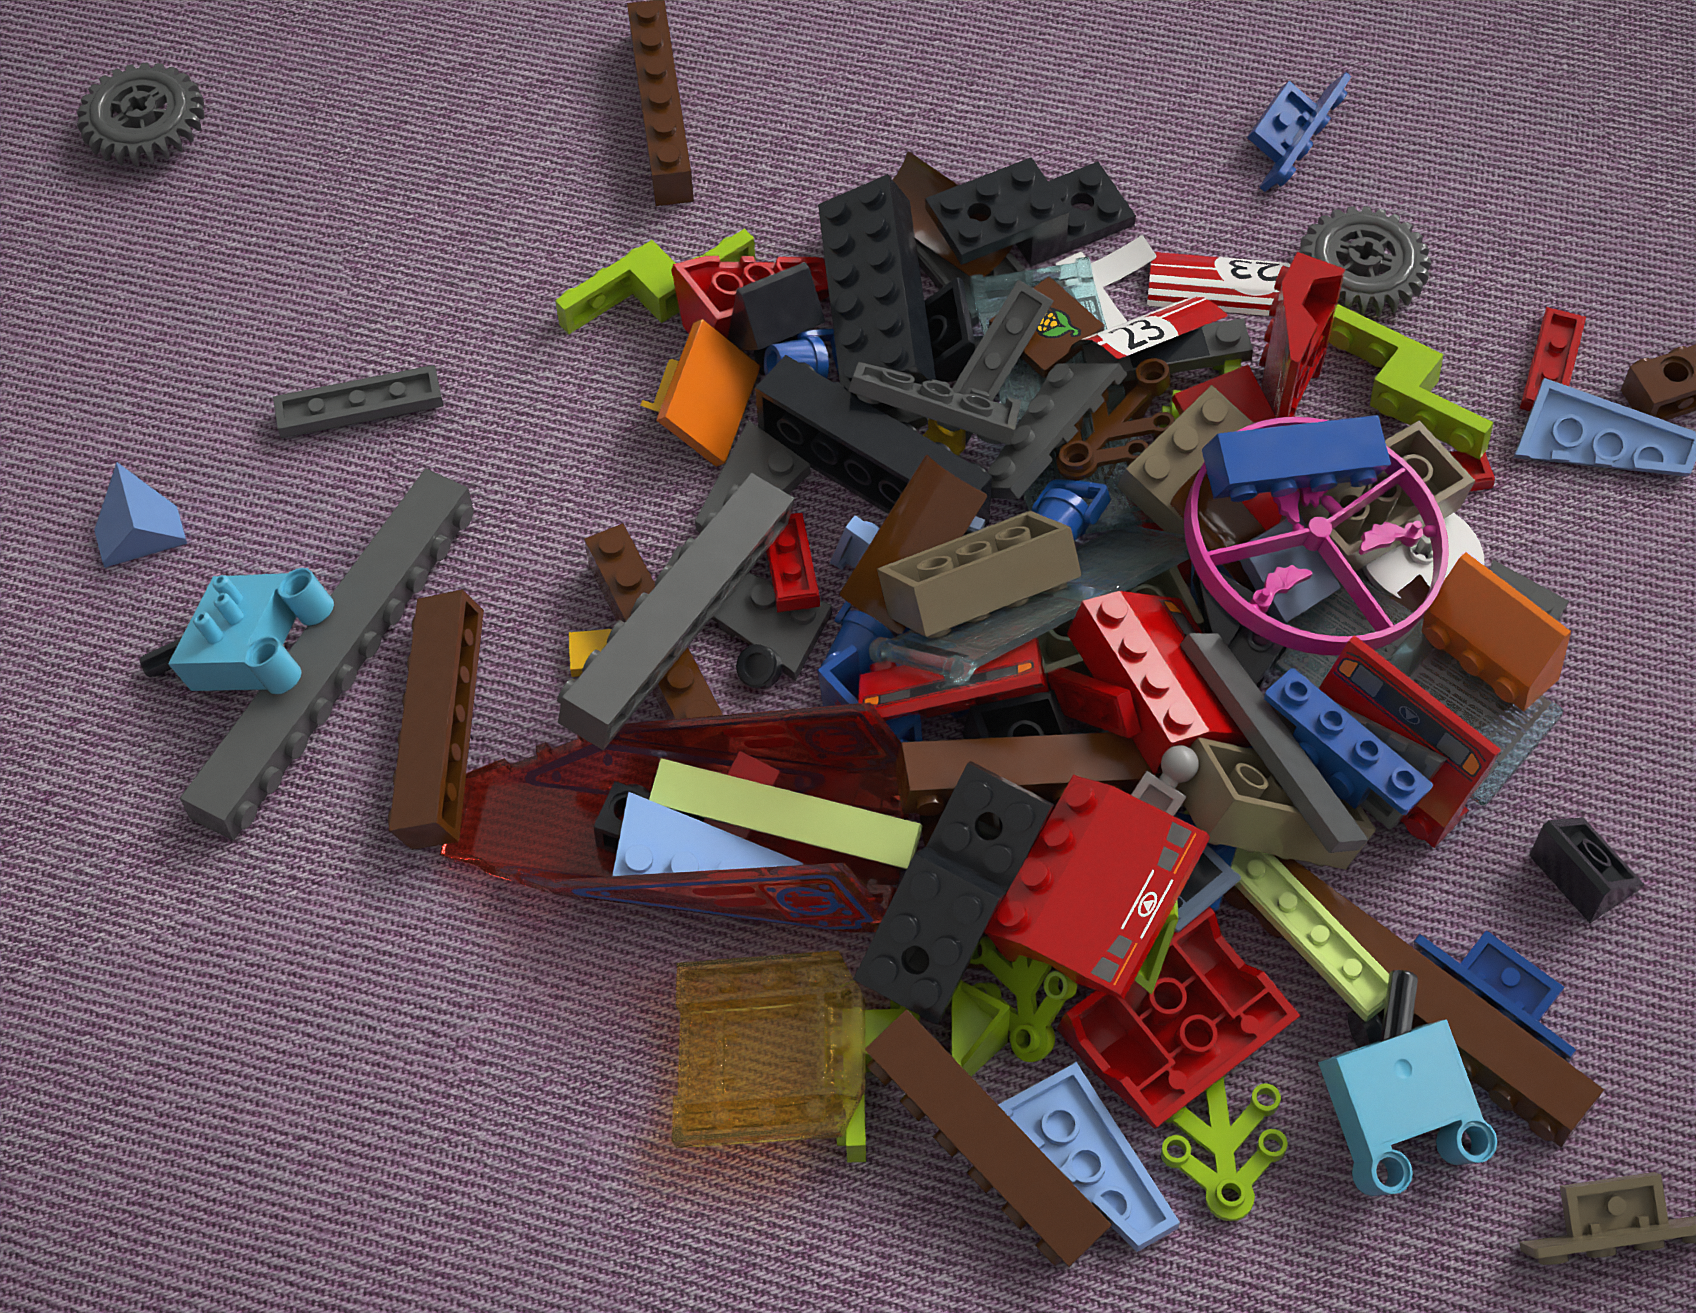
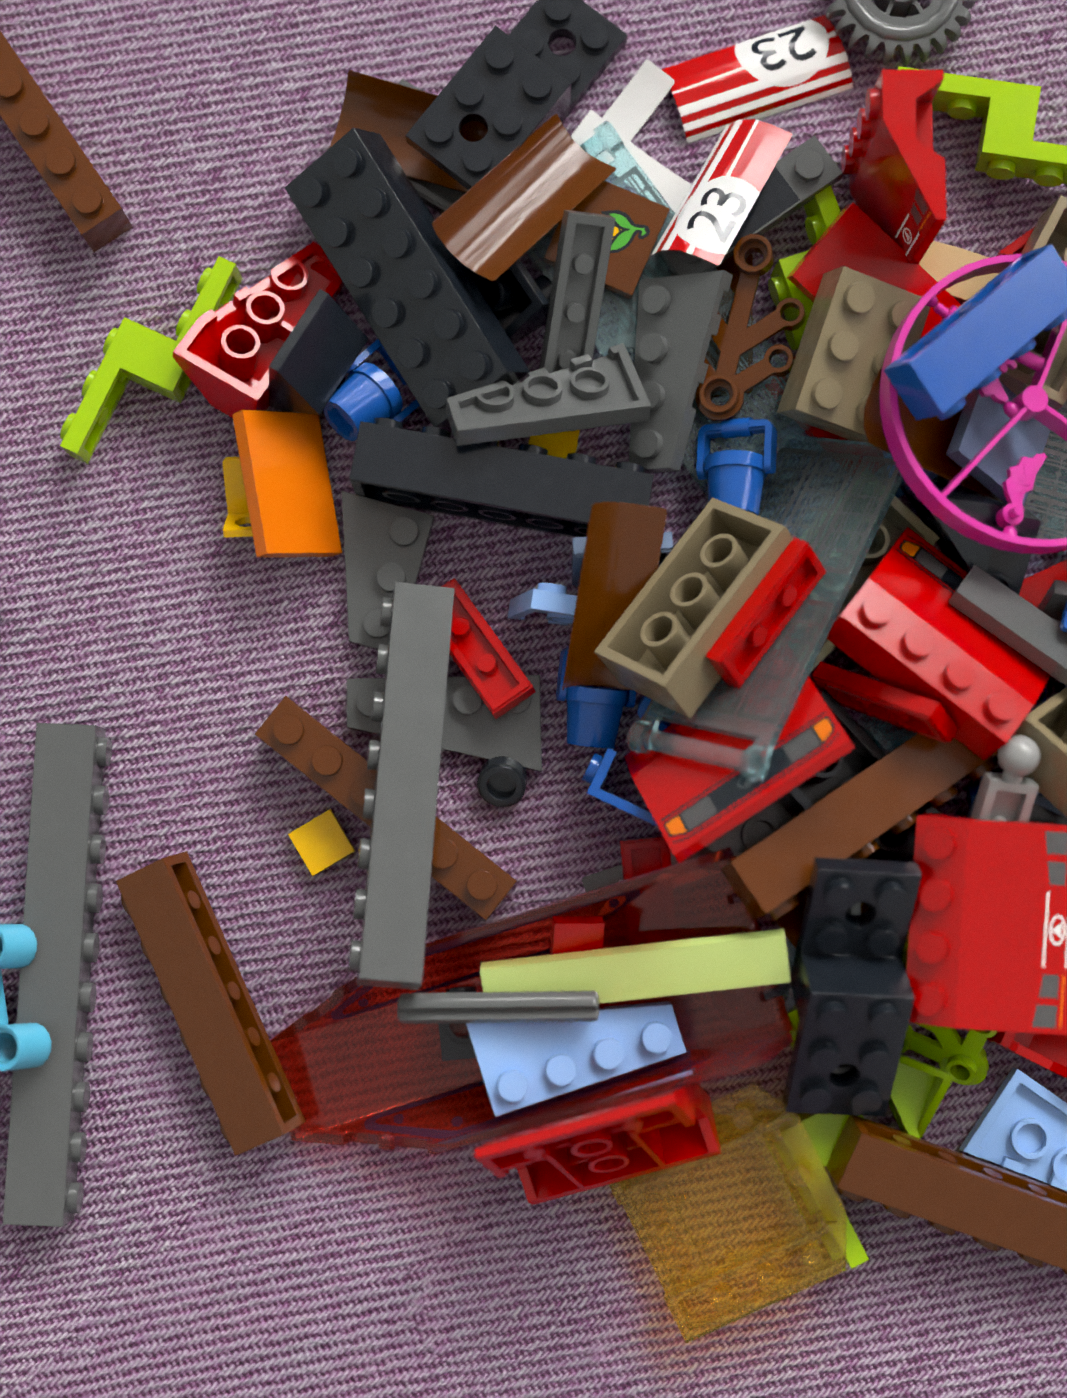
camera: 30 degrees left, 25 degrees up
(660, 791) = (498, 1007): none -> dark grey axle
(689, 915) = (607, 1144): none -> red piece
(986, 266) = (519, 200): none -> reddish brown sticker
(1025, 587) = (766, 613): none -> red tile

